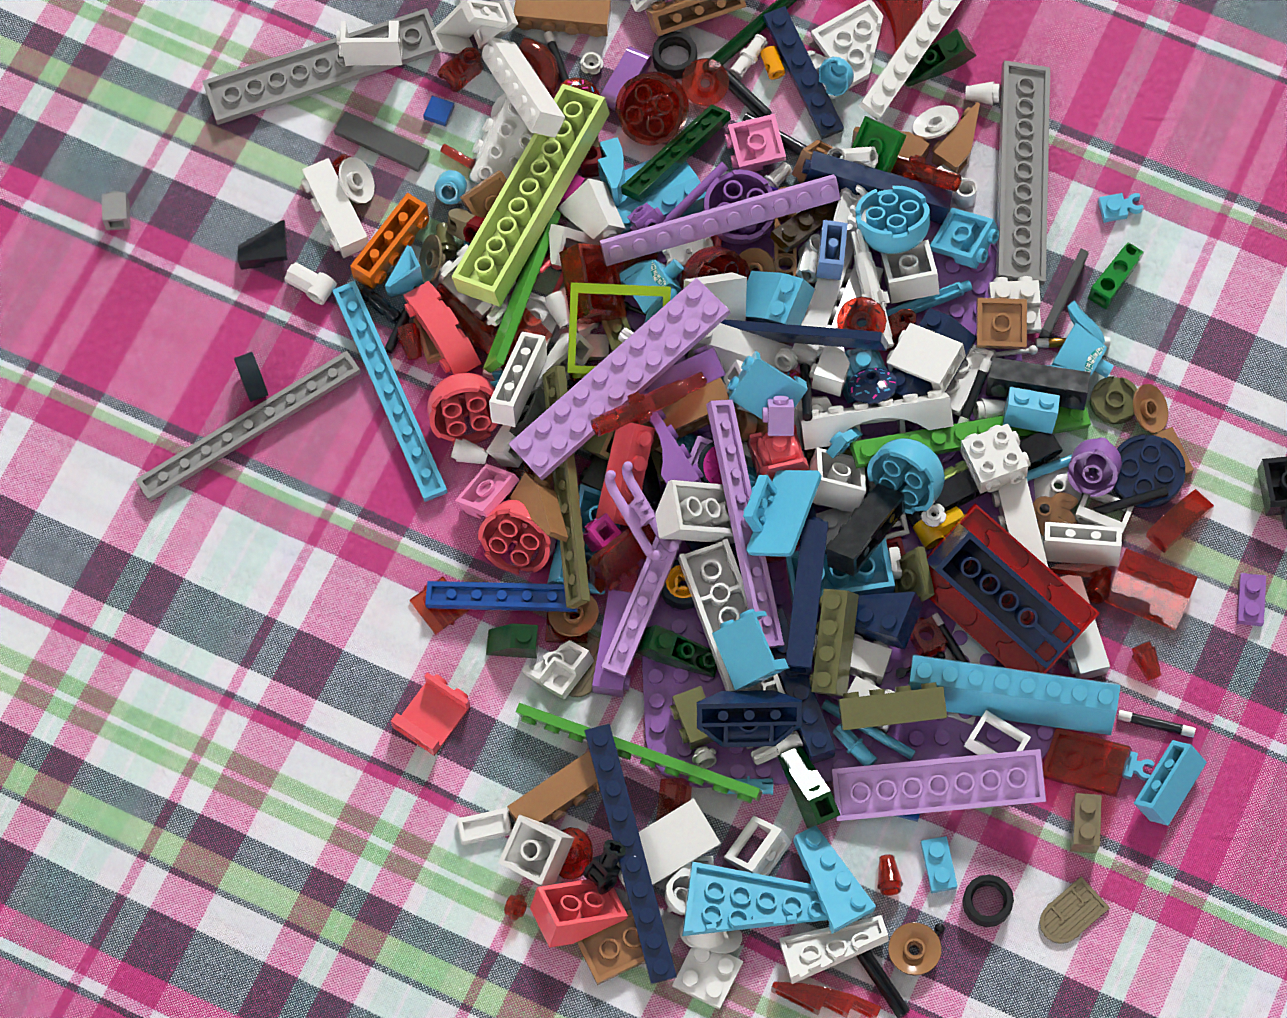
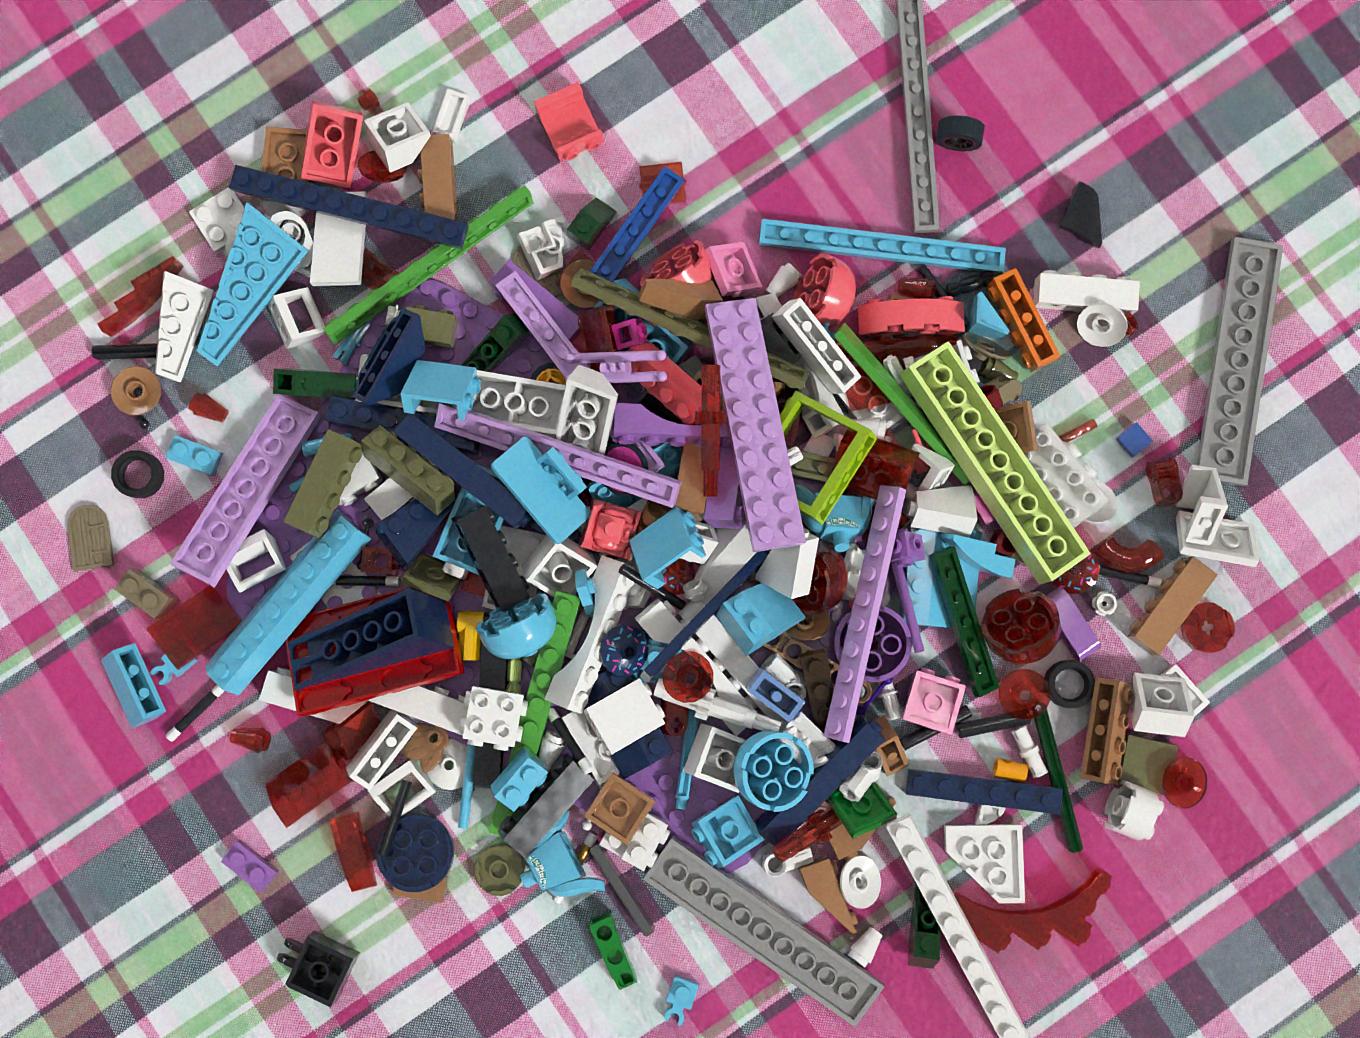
camera: 120 degrees right, 15 degrees up
(116, 210) = (1192, 106): light grey brick -> none
(316, 286) = (1019, 237): white piece -> none
(371, 50) = (1217, 422): white panel -> none
(381, 141) = (1131, 372): dark grey tile -> none
(450, 187) = (1047, 403): medium azure head -> none
(523, 87) = (1106, 513): white brick -> none
(604, 868) = (347, 179): black connector -> none
(779, 416) = (632, 540): lavender brick -> none
(836, 75) = (958, 817): medium azure hair -> none
(837, 888) = (218, 357): medium azure wing -> none
(934, 521) = (470, 633): white plate -> none
(1094, 467) = (438, 804): medium lavender brick -> none
(1150, 408) = (467, 893): medium nougat dish -> none

